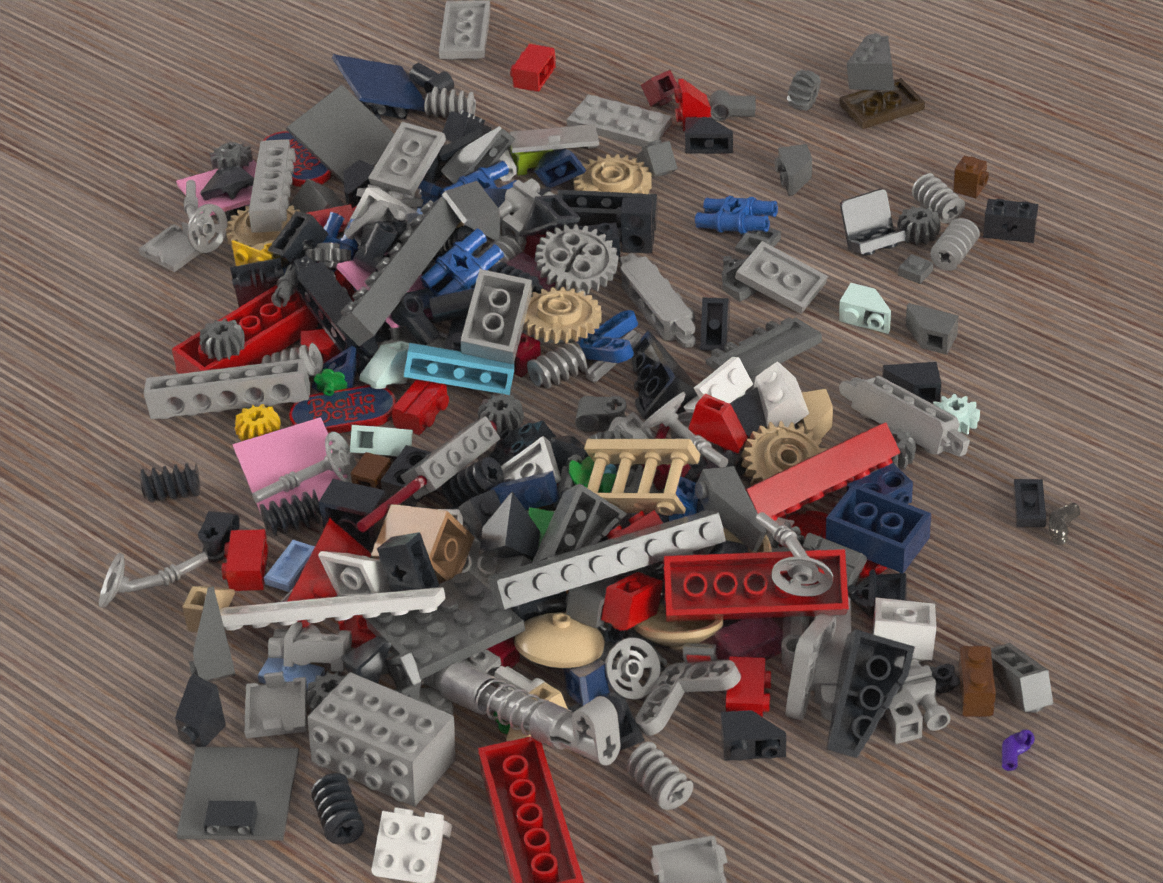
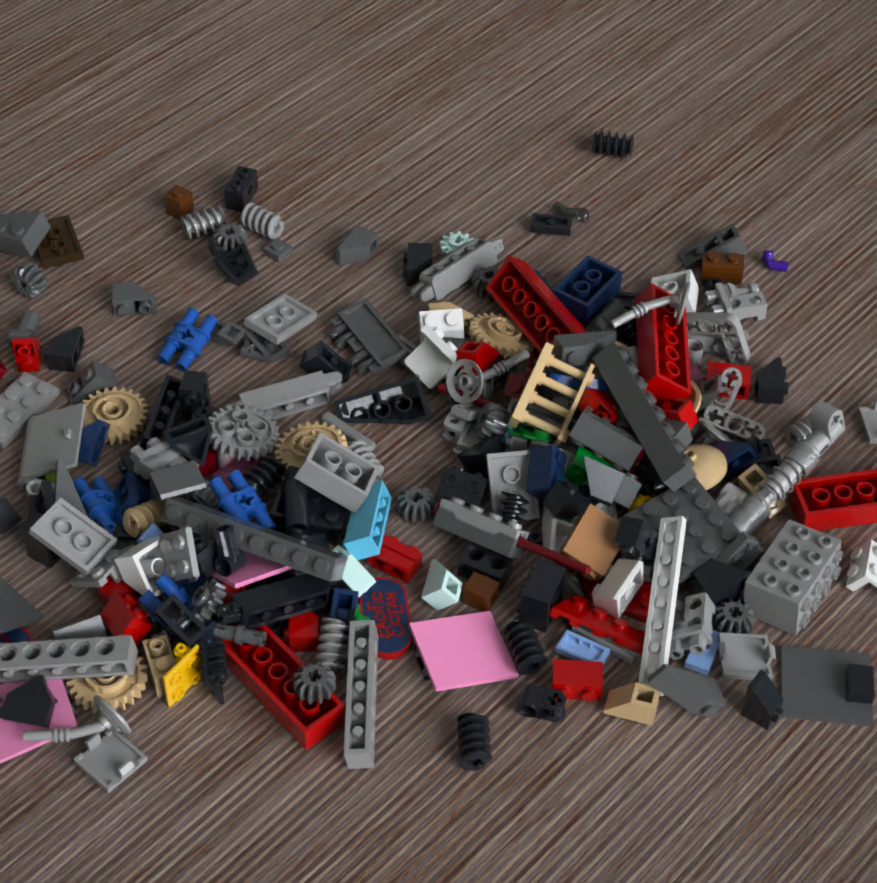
camera: 90 degrees left, 5 degrees up
(117, 582) = (602, 768): light grey dish -> none
(256, 422) = (403, 676): yellow gear -> none
(337, 809) = (849, 611): black piece -> none
(339, 458) = (470, 608): light grey dish -> none
(356, 177) = (56, 601): black slope -> none
(599, 412) = (425, 439): dark grey piece -> none
(605, 342) = (359, 412): blue beam -> none
(864, 308) = (326, 278): light aqua slope -> none
(866, 684) = (727, 297): black wedge -> none

